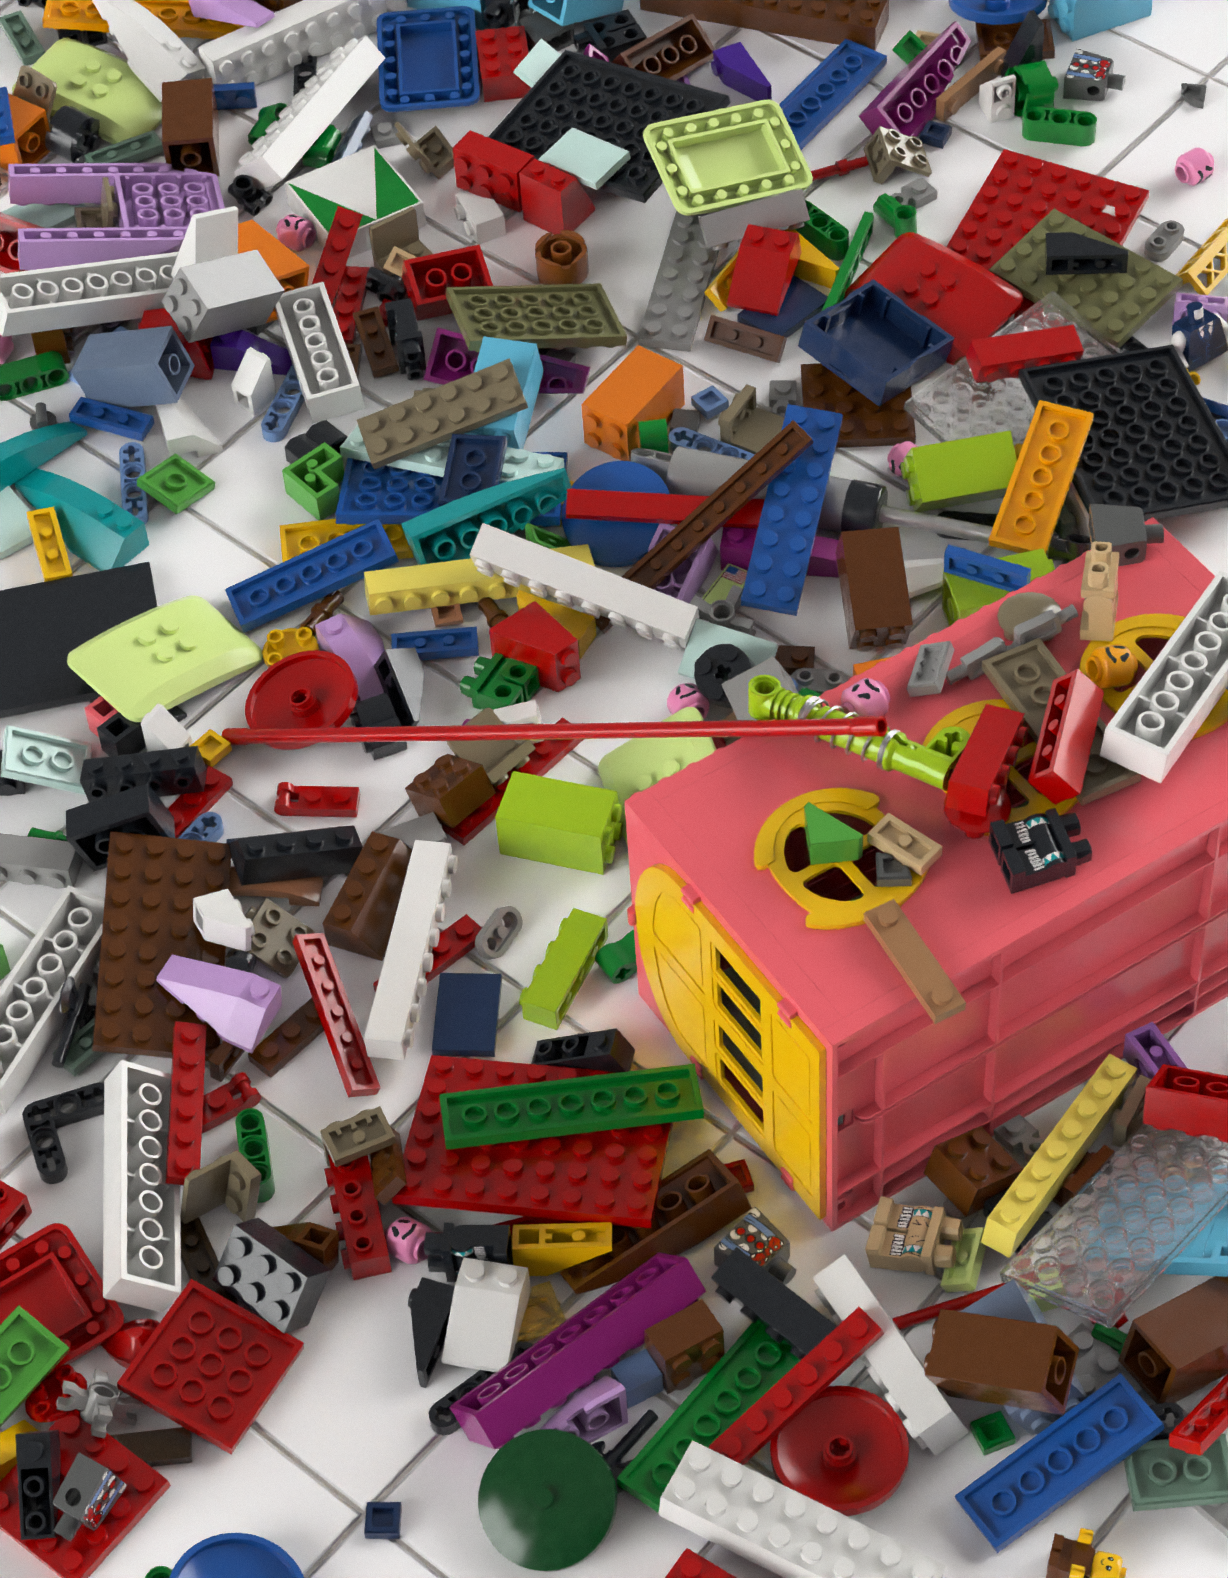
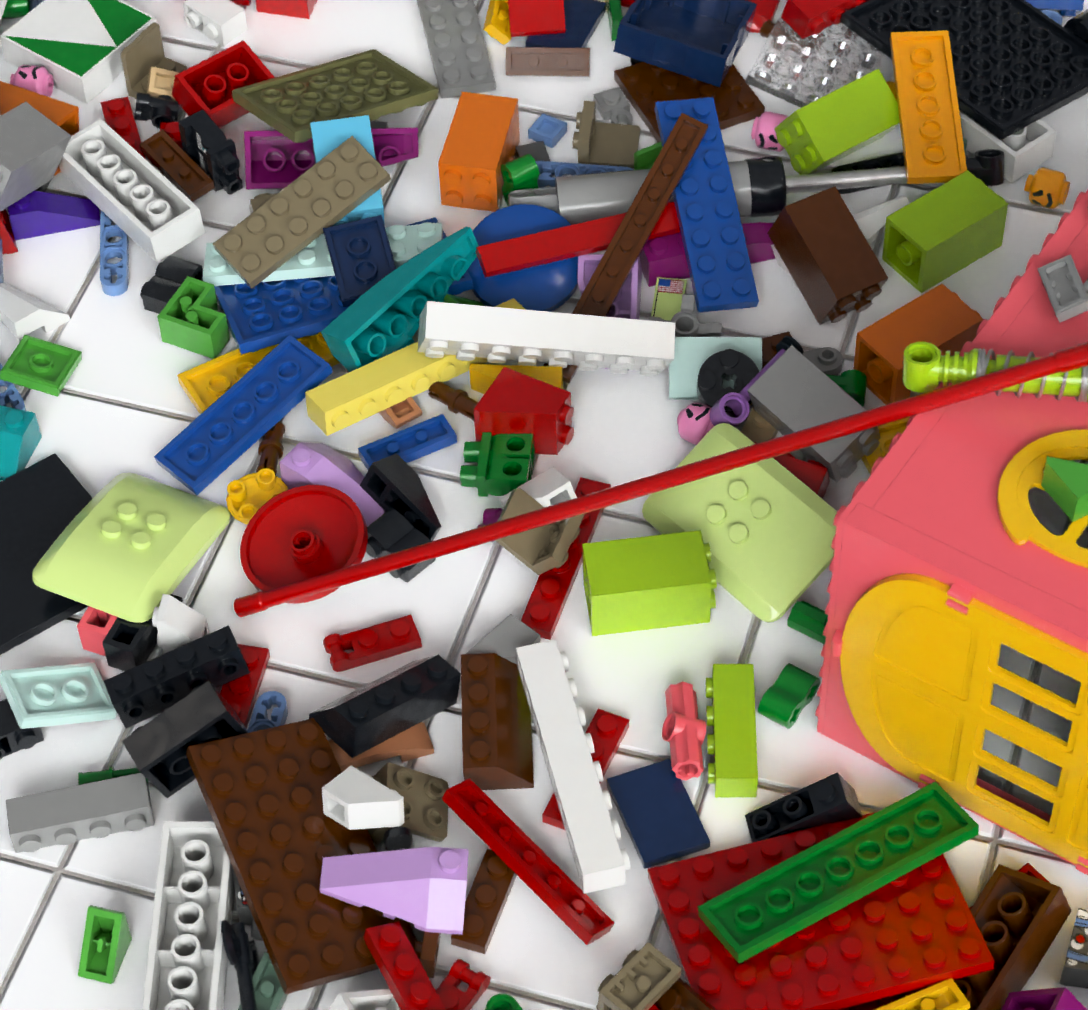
camera: 25 degrees left, 0 degrees up
(212, 747) = (236, 619): yellow plate -> none
(254, 382) = (73, 239): white slope -> none
(337, 250) = (90, 83): red plate -> none
(450, 789) = (516, 584): reddish brown brick -> none
(497, 935) = (644, 716): light grey plate -> none
(522, 954) = (684, 731): none -> coral piece
(561, 258) = (324, 35): dark orange brick -> none
(784, 658) = (739, 401): none -> medium lavender piece
(866, 698) = (1023, 335): bright pink head -> none
(985, 569) = (935, 203): blue plate -> none

